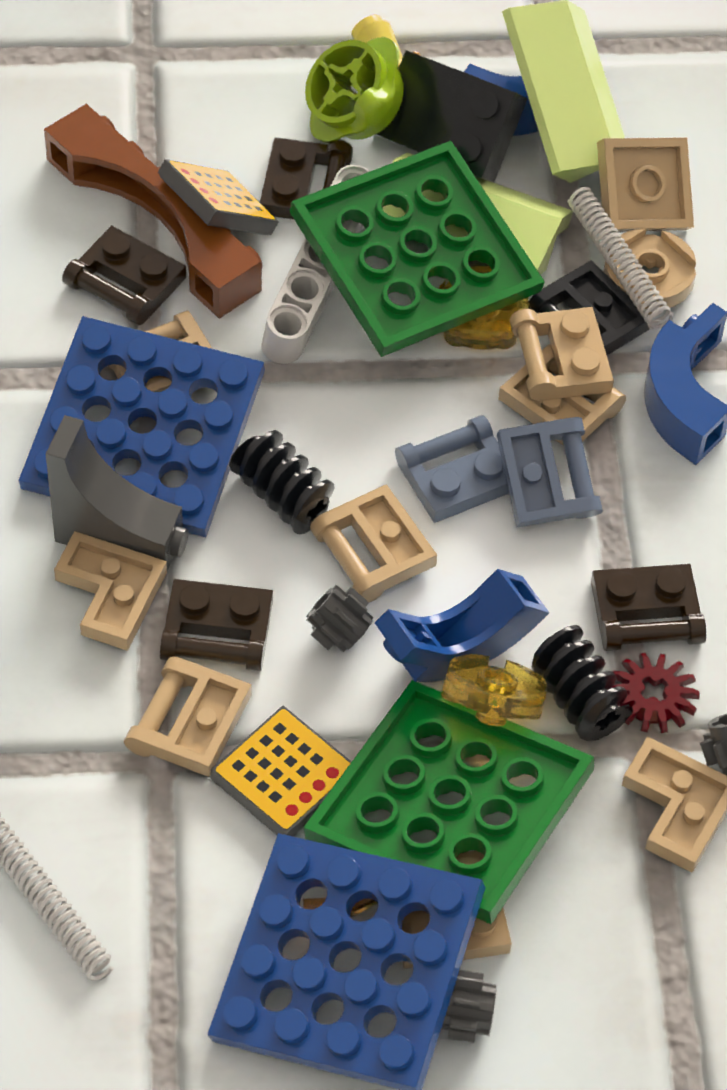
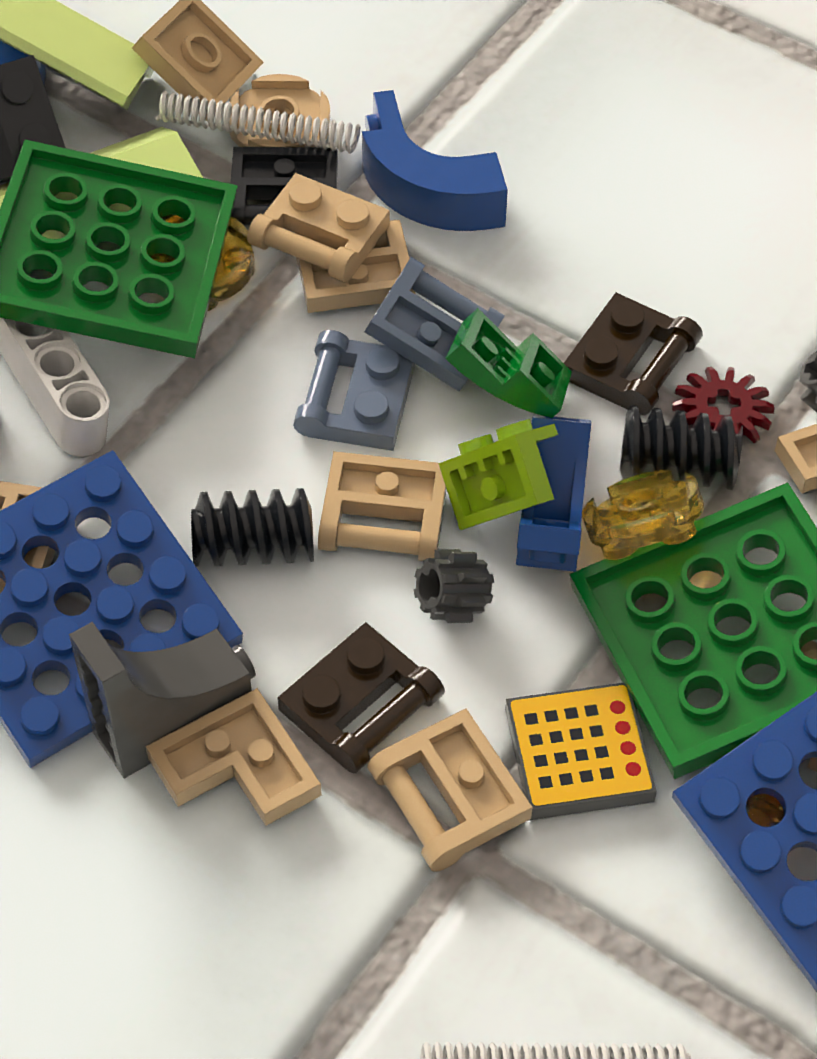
camera: 50 degrees left, 0 degrees up
(436, 579) = (498, 476): none -> lime bracket
(539, 533) = (520, 375): none -> green slope

